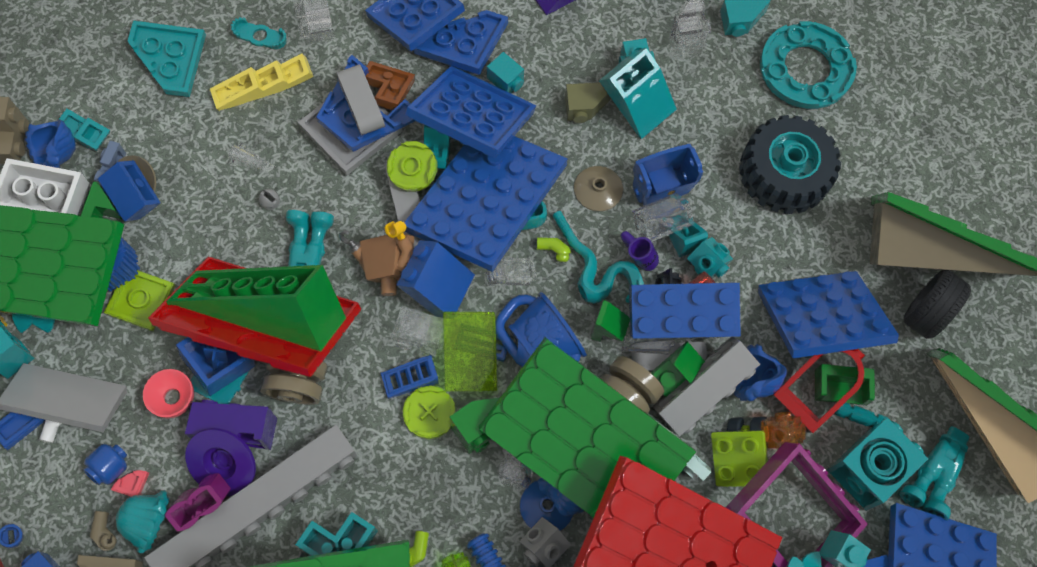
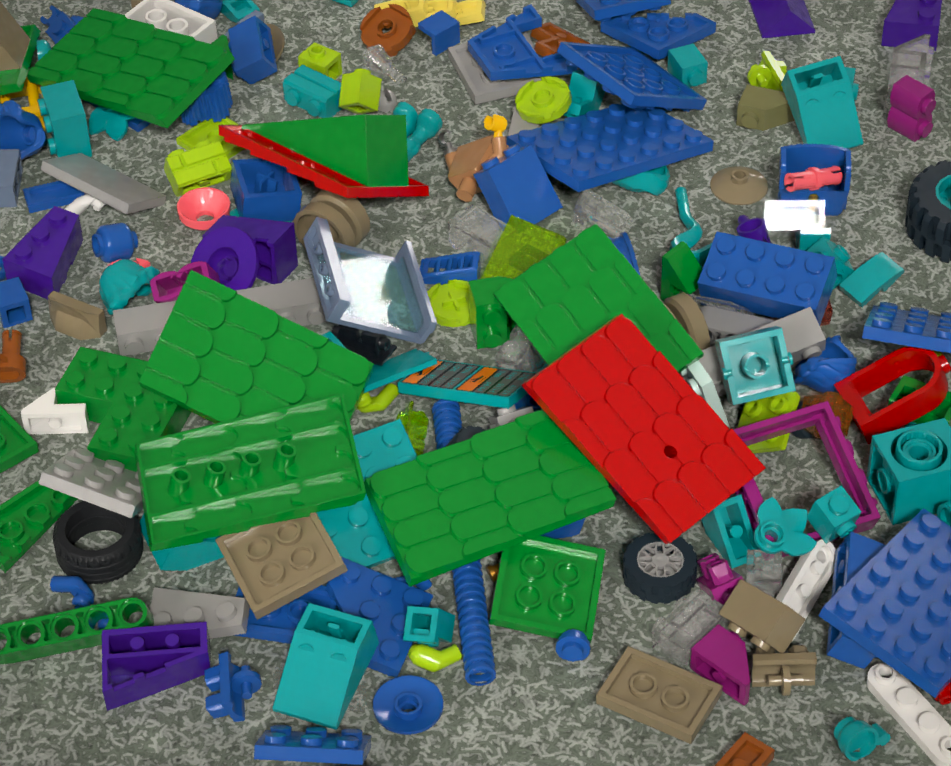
camera: 30 degrees right, 25 degrees down
(49, 505) = (46, 253): none -> dark purple wedge
(100, 533) = (82, 288): dark tan arm -> none
(141, 348) = (197, 167): none -> lime brick
(194, 180) = (322, 60): none -> lime brick
(204, 216) = (312, 92): none -> teal brick
(229, 107) = (397, 37): none -> dark orange plate
(247, 206) = (360, 92): none -> lime brick
(282, 104) = (443, 31): none -> blue panel
(358, 440) = (369, 287): none -> panel
(360, 99) = (518, 33): light grey beam -> none
(377, 498) = (372, 346): none -> black hinge
(413, 515) = (399, 367): none -> teal piece
(489, 514) = (467, 384): none -> tile
(560, 248) = (662, 212): lime arm -> none
(575, 63) = (768, 73): none -> lime hips
(670, 181) = (813, 178): none -> coral pin
(678, 367) = (739, 321): green slope -> none
(706, 66) = (911, 108): none -> magenta brick
(720, 417) = (755, 365): none -> teal brick
(747, 258) = (870, 278): none -> teal slope

